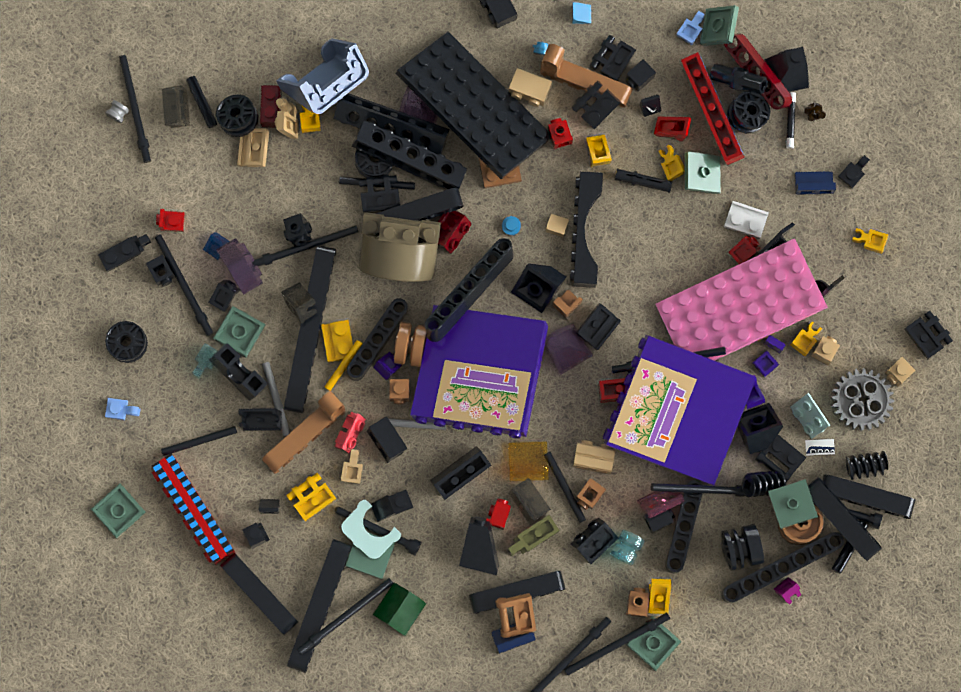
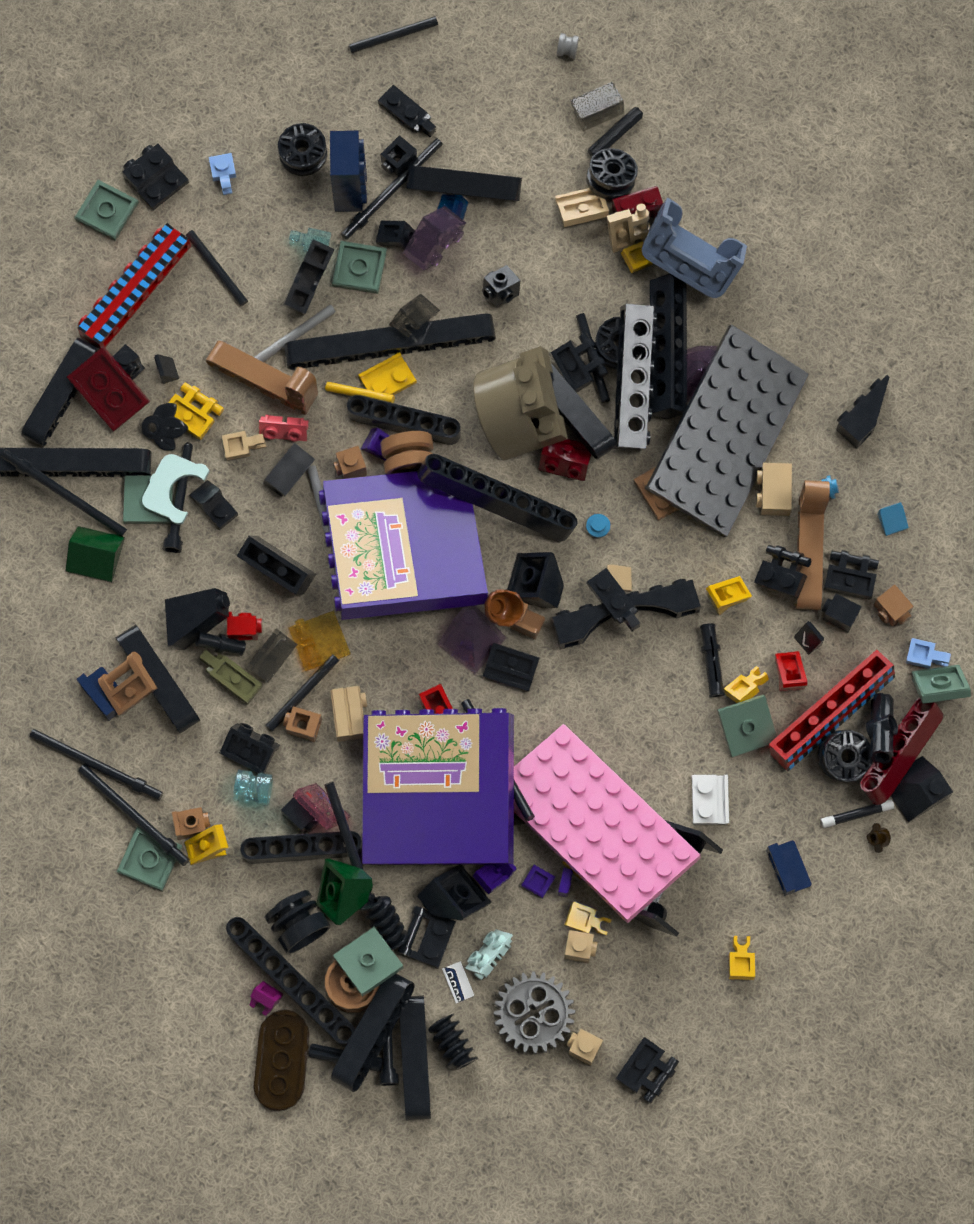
camera: 75 degrees right, 5 degrees down
(54, 240) = (393, 34): none -> black bar
(104, 464) = (154, 176): none -> black plate
(142, 142) = (542, 87): black bar -> none
(167, 310) = (348, 171): none -> dark blue brick
(170, 220) = (461, 147): red bracket -> none
(201, 229) = (464, 183): none -> black beam
(260, 419) = (263, 323): black hinge -> none
(268, 259) = (457, 269): black bar -> none
(273, 554) = (108, 388): none -> dark red tile
(318, 519) = (167, 426): none -> black plate
(507, 535) = (220, 643): none -> black pin
(557, 314) = (504, 607): none -> dark orange hair
(563, 139) = (730, 550): red brick -> none
(577, 232) = (614, 599): none -> black hinge
(648, 37) = (893, 606): none -> medium nougat brick
(730, 506) = (342, 890): none -> dark green slope
(745, 249) = (672, 808): red bracket -> none
(836, 594) = (281, 1060): none -> dark brown tile
(852, 173) = (818, 910): black plate -> none

